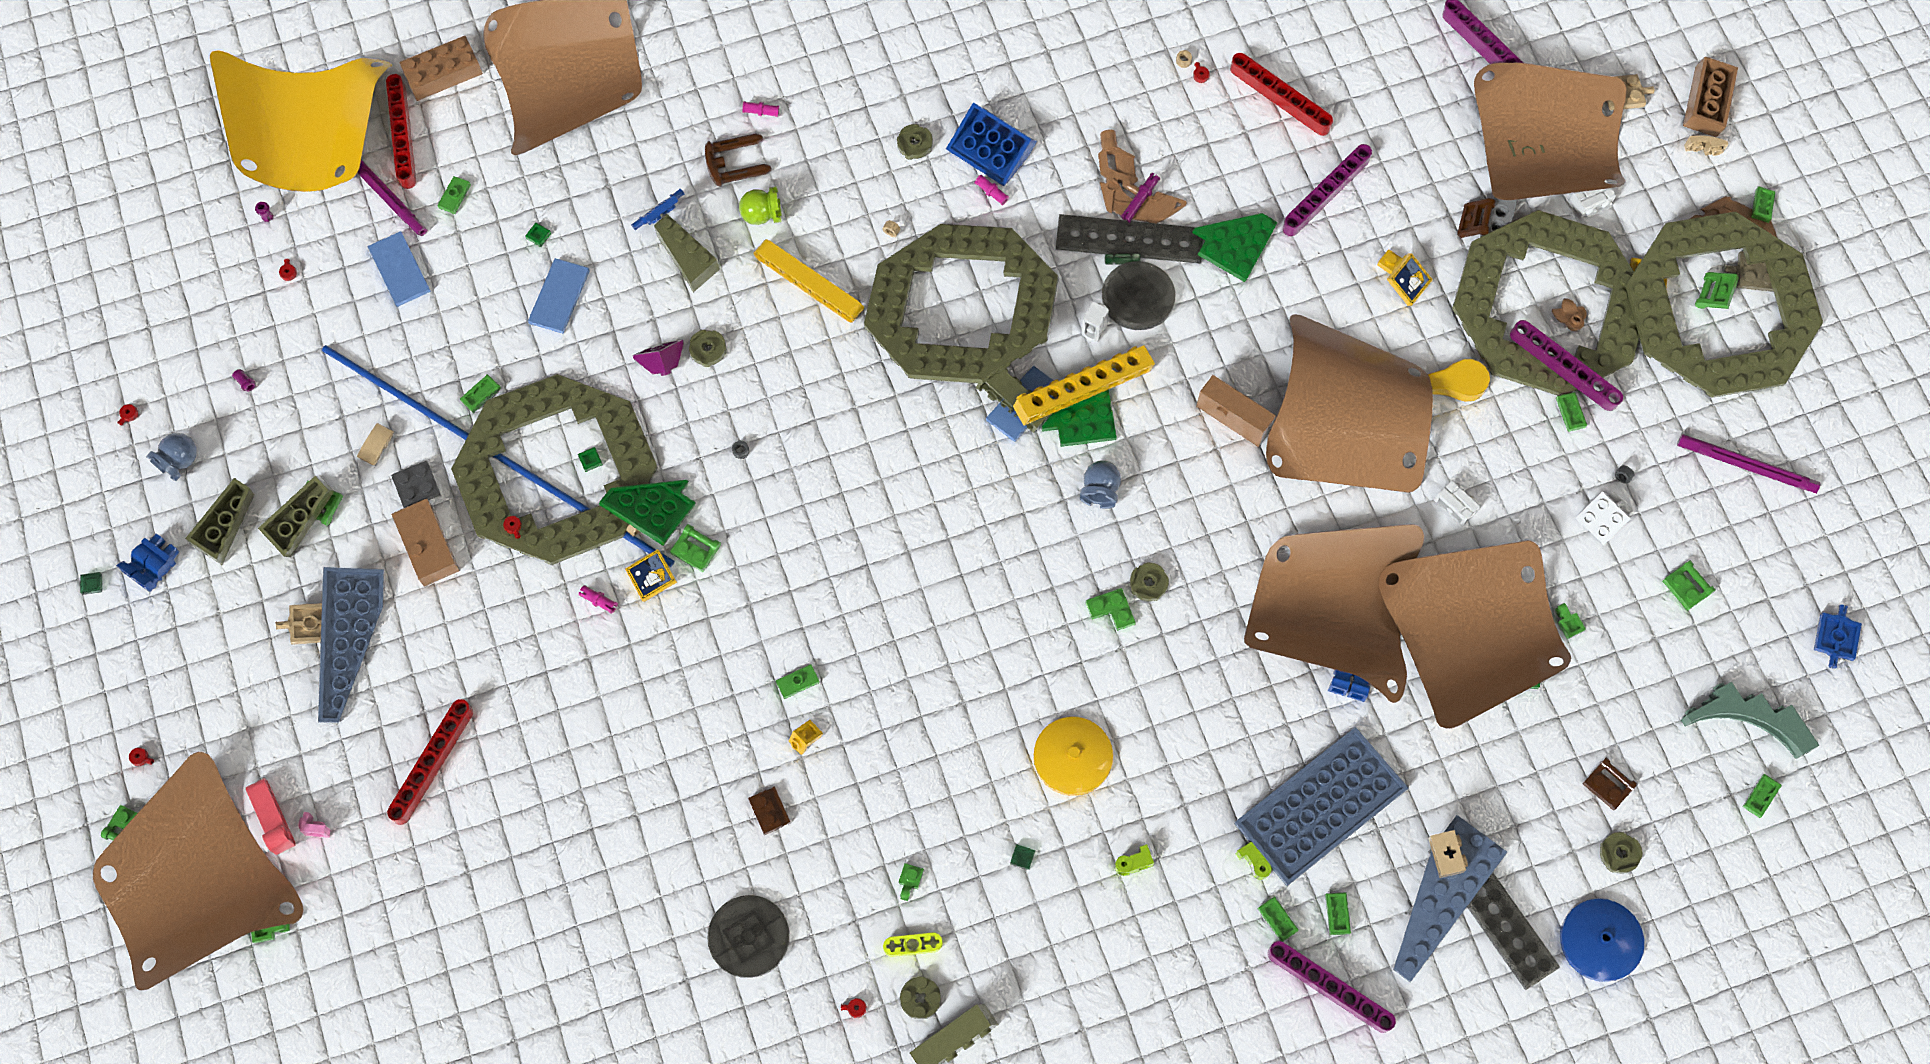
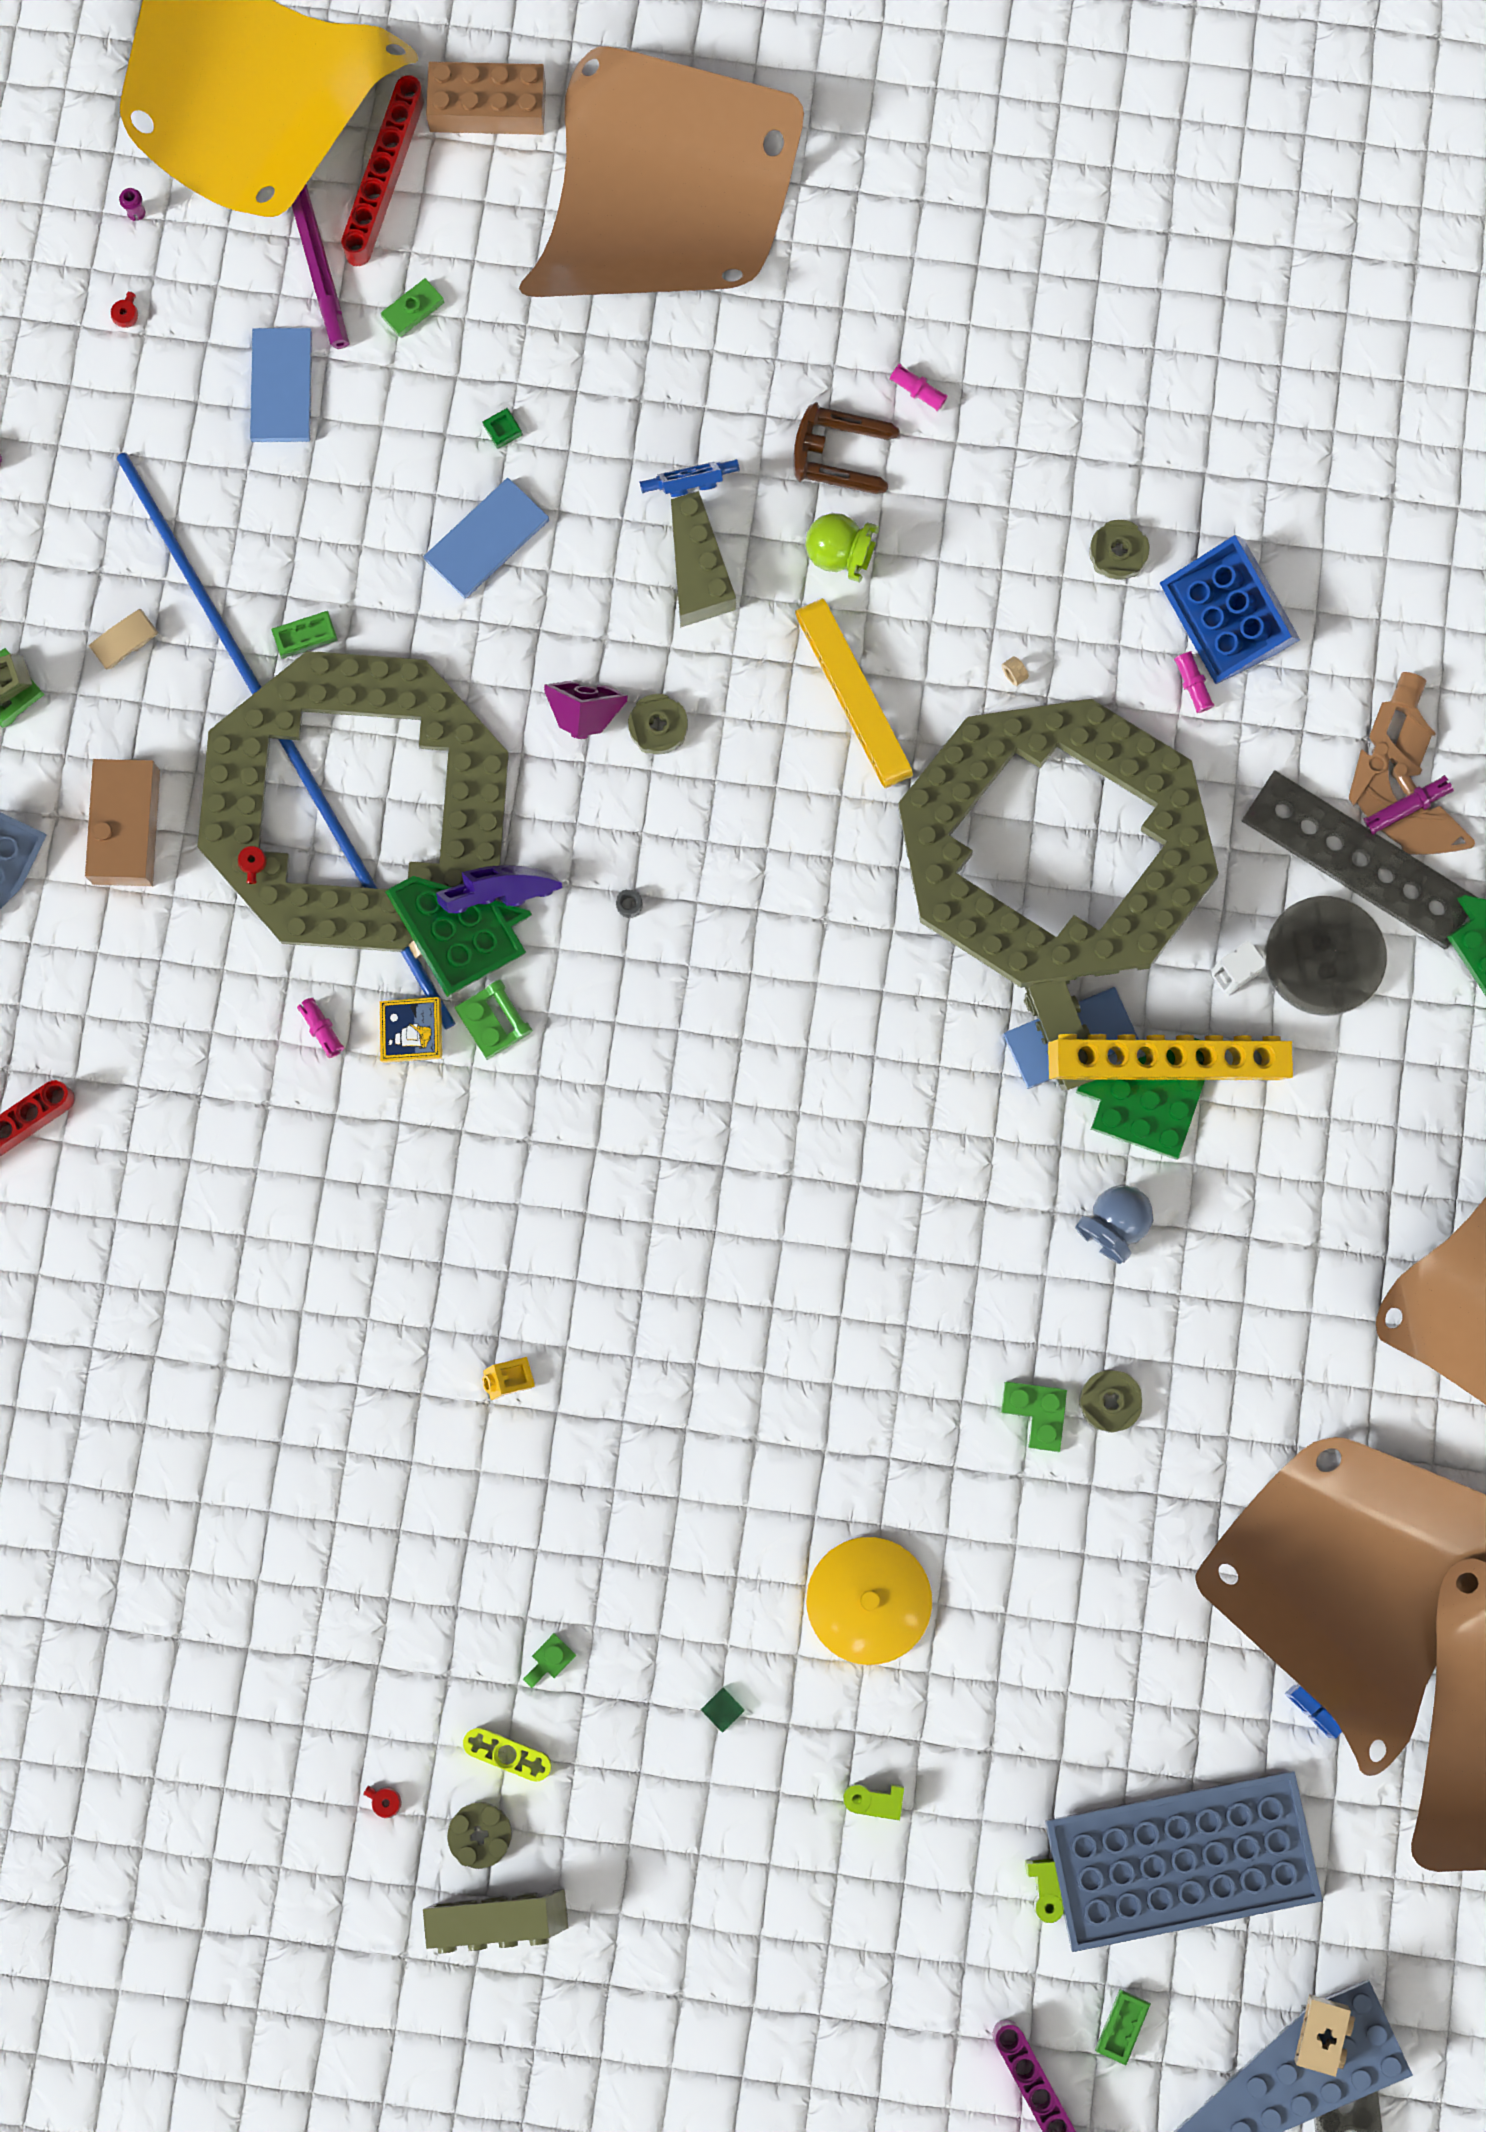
camera: 25 degrees right, 10 degrees up
(415, 484) = (151, 727): flat silver plate -> none
(590, 459) = (410, 811): green tile -> none
(664, 469) = (507, 882): none -> dark purple slope
(748, 936) = (289, 1624): clear smoke plate -> none
(769, 810) = (406, 1458): reddish brown plate -> none
(797, 681) = (538, 1291): bright green plate -> none
(1120, 259) = (1331, 885): dark green axle -> none
(1235, 410) = (1374, 1210): medium nougat brick -> none
(1278, 919) = (1033, 1990): bright green plate -> none

